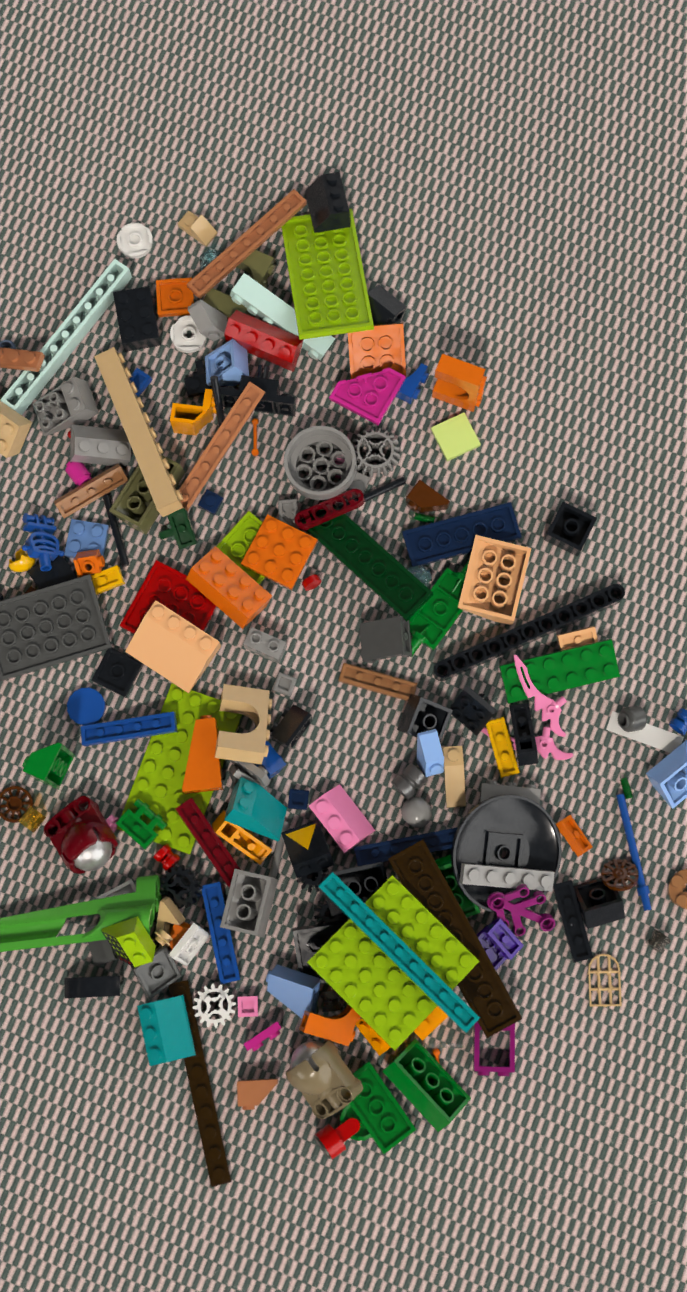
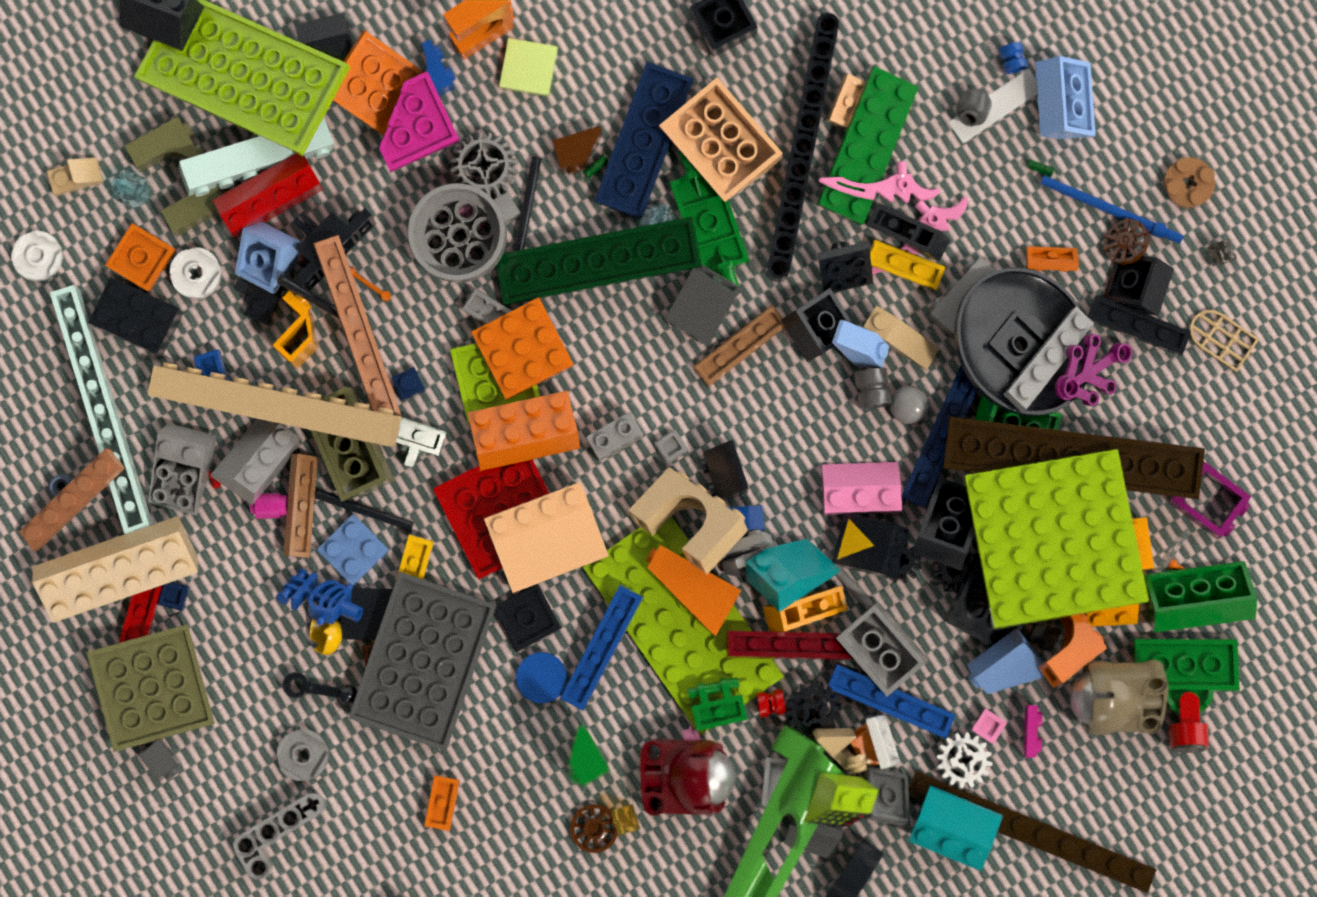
camera: 55 degrees left, 5 degrees up
(90, 557) = (383, 563): orange brick -> none
(208, 320) = (200, 239): light grey slope -> none
(246, 244) = (142, 134): nougat plate -> none
(252, 1092) = (1082, 780): nougat slope -> none
(298, 799) = (806, 520): dark blue tile -> none
(311, 582) = (580, 338): red tile -> none
(330, 511) = (518, 261): dark red beam -> none
(399, 952) = (1051, 524): teal plate -> none
(499, 942) = (1108, 415): dark purple slope -> none

